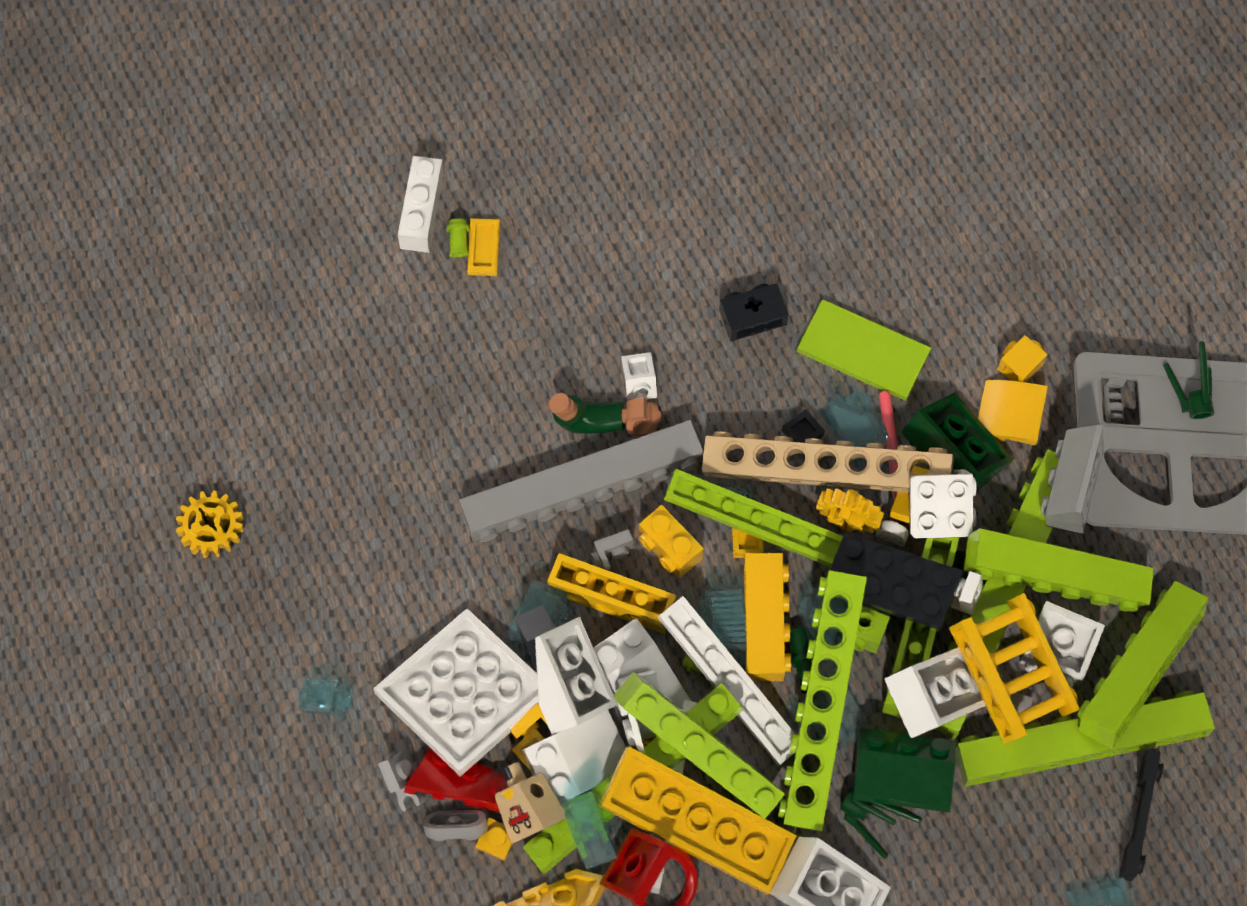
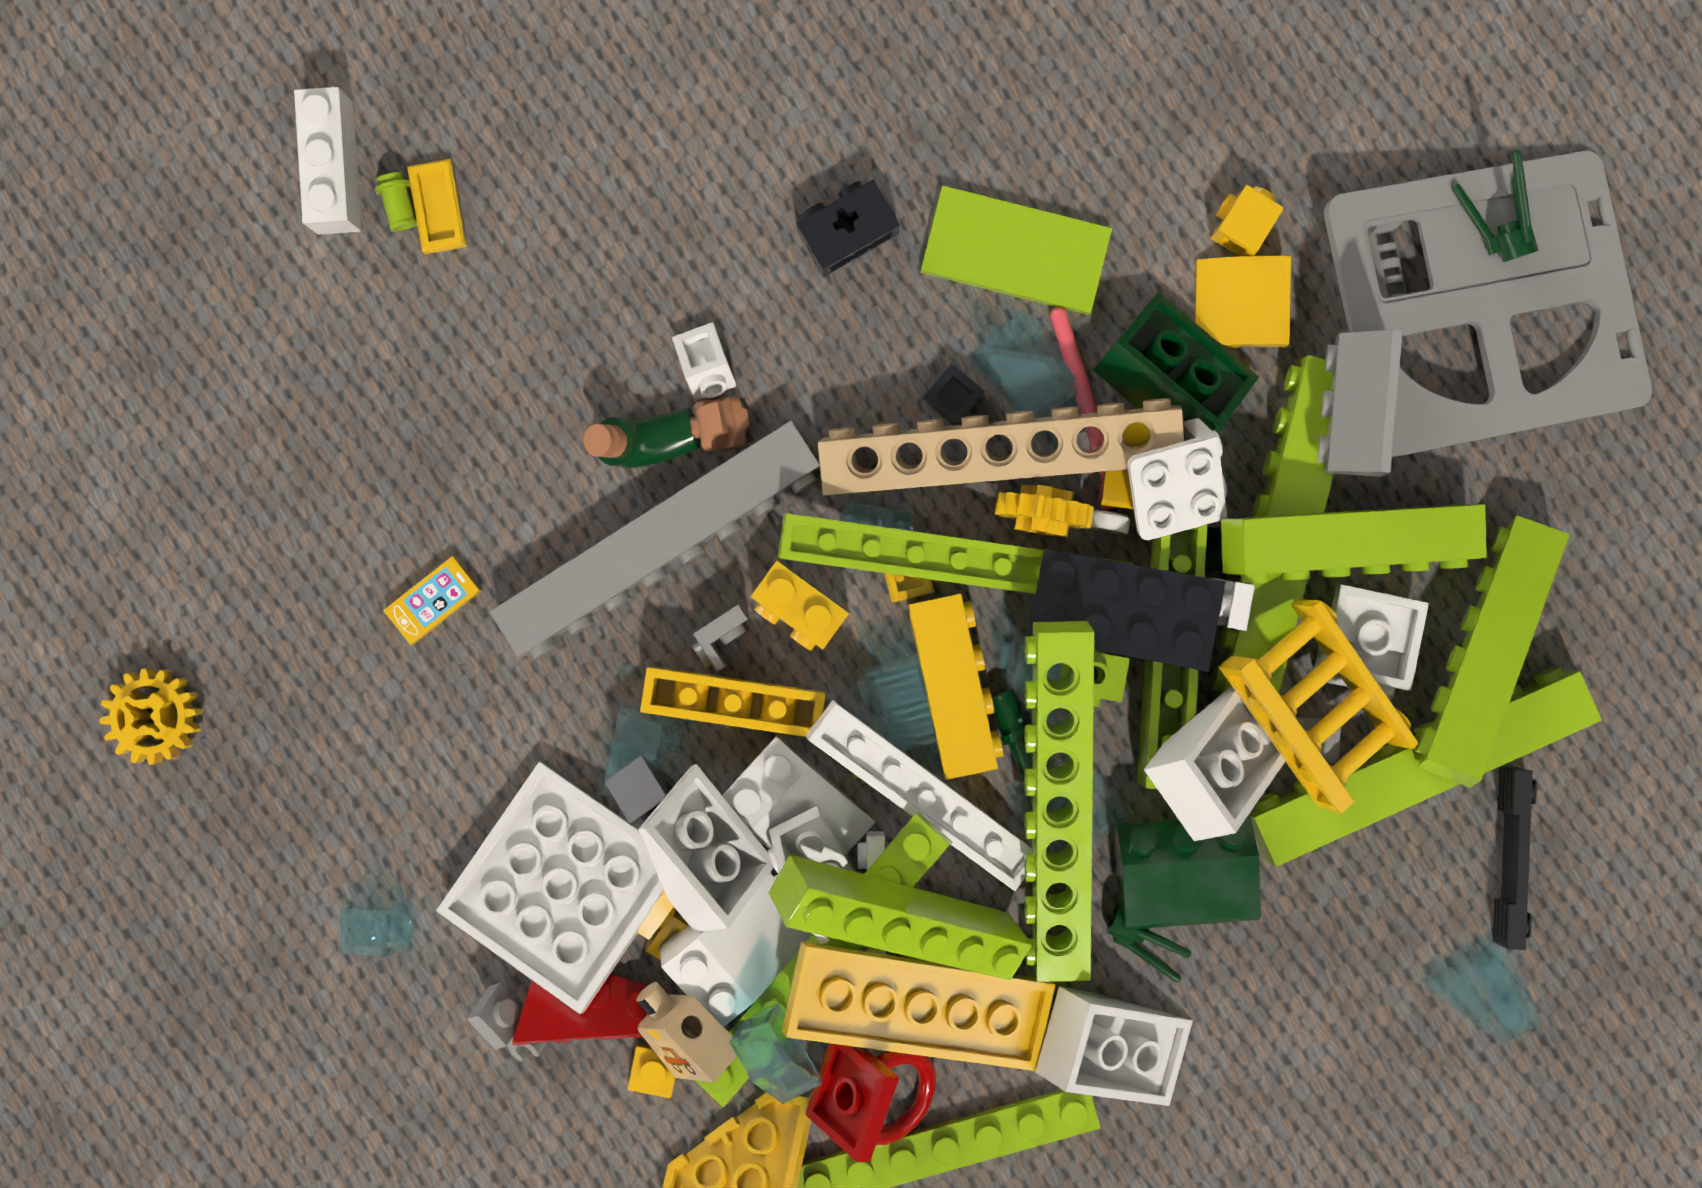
camera: 10 degrees left, 20 degrees up
(418, 491) = (432, 600): none -> tile
(455, 824) = (597, 1070): light grey plate -> none

